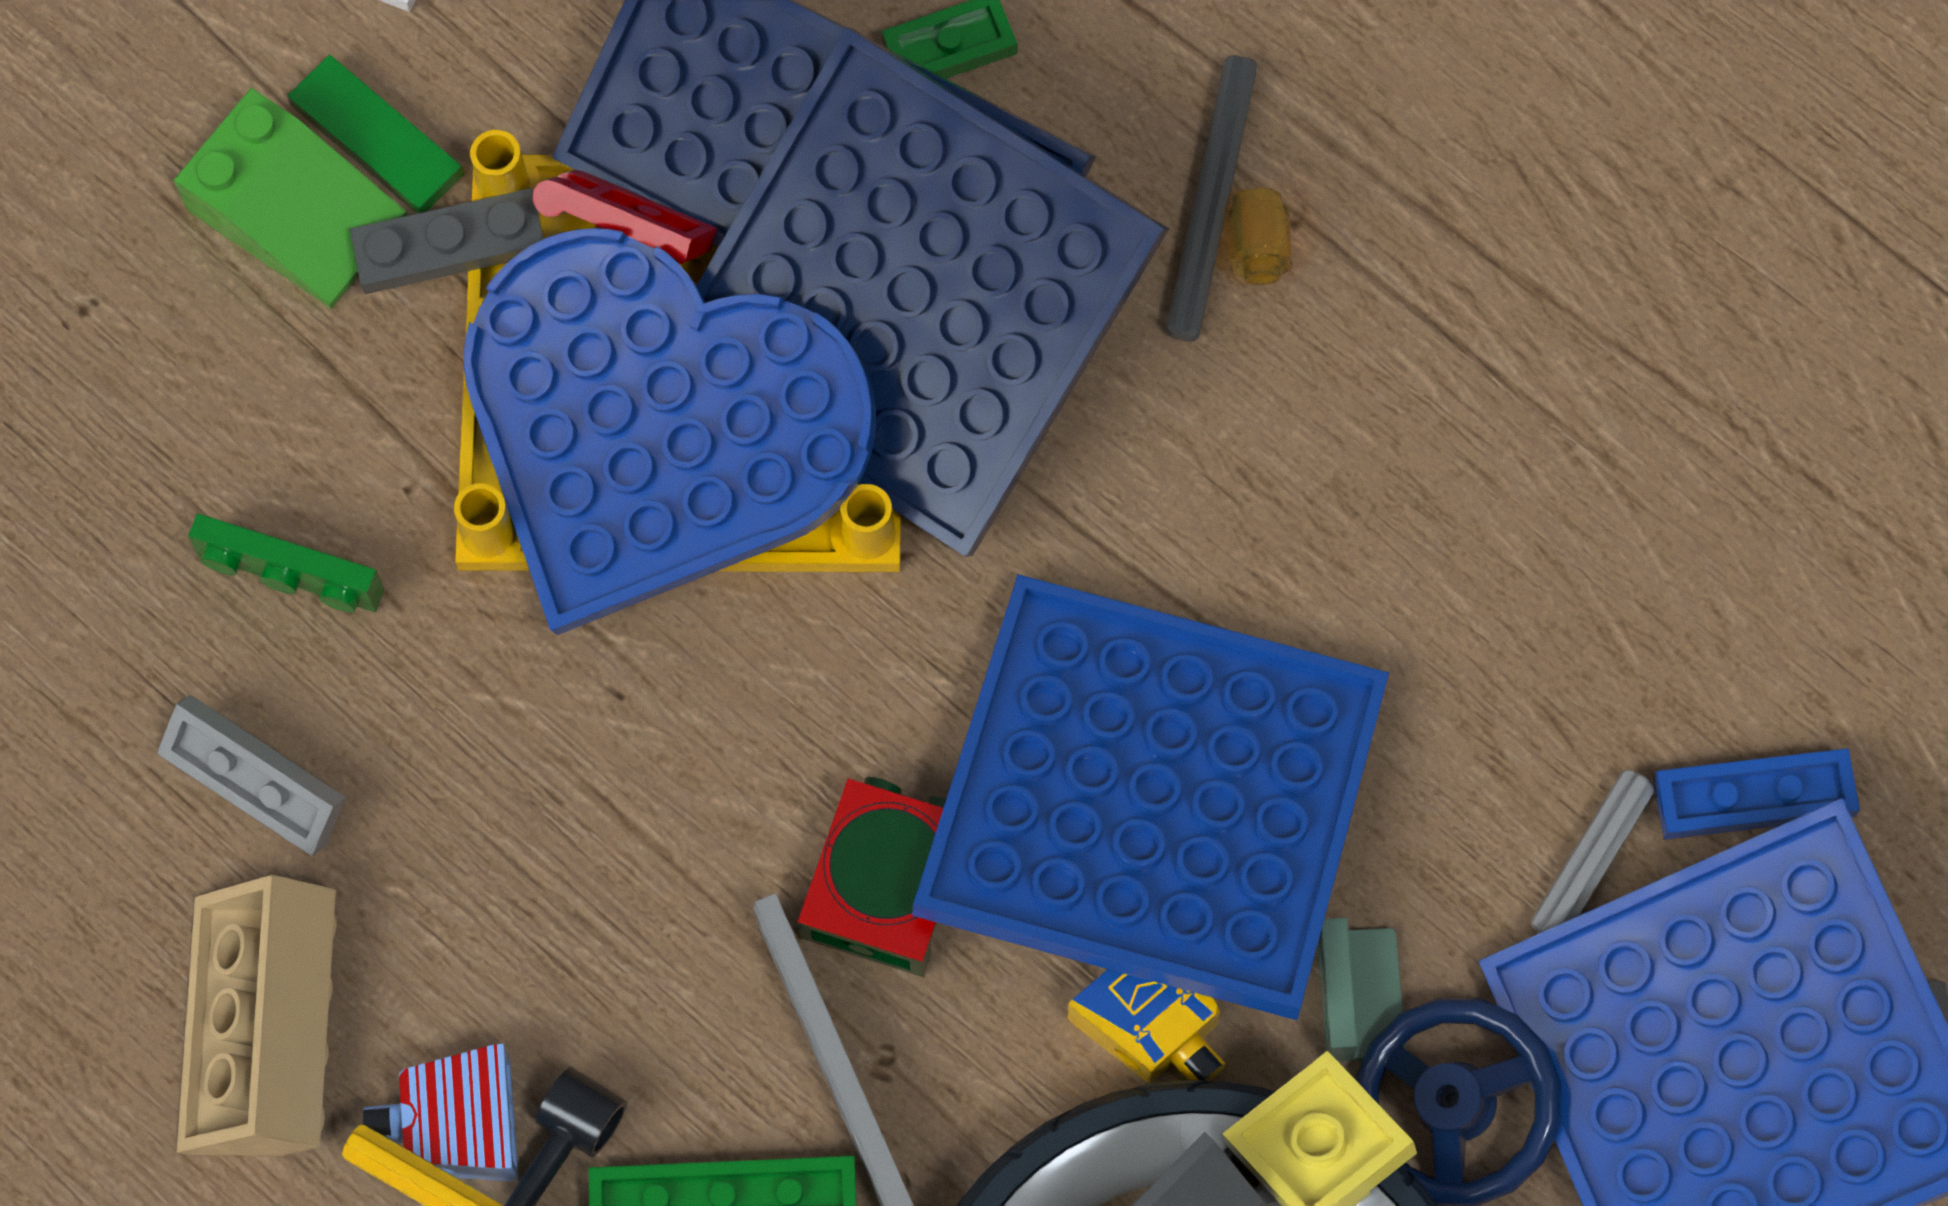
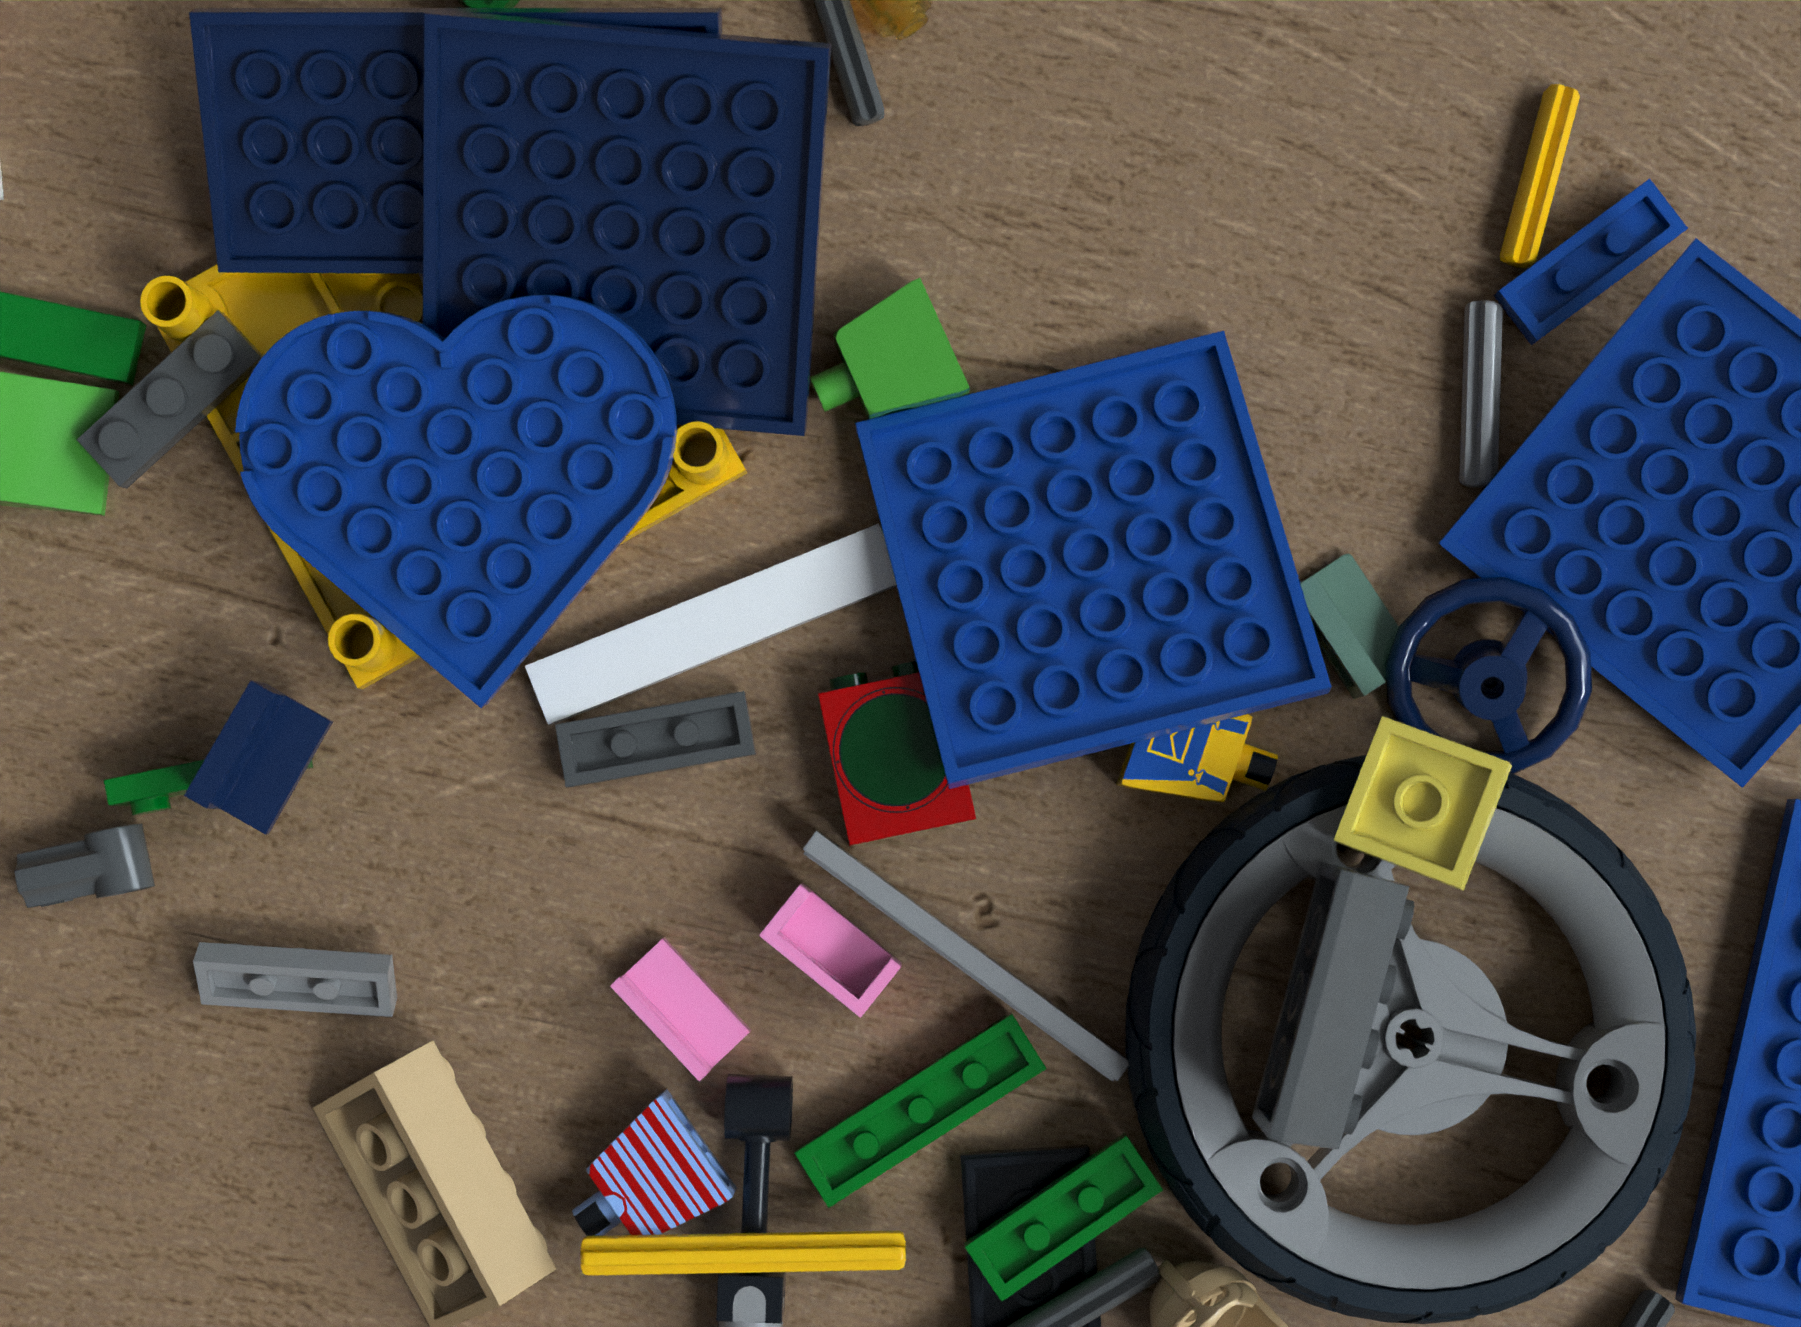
camera: 30 degrees left, 15 degrees up
(150, 588) = (102, 864): none -> dark grey piece
(339, 561) = (259, 756): none -> dark blue panel
(566, 990) = (681, 1008): none -> bright pink panel
(624, 211) = (317, 291): red plate -> none
(684, 747) = (655, 739): none -> dark grey plate
(727, 1008) = (831, 949): none -> bright pink panel
(790, 680) = (712, 625): none -> white tile
(1082, 536) = (893, 358): none -> bright green torso
(1753, 696) = (1539, 176): none -> yellow axle

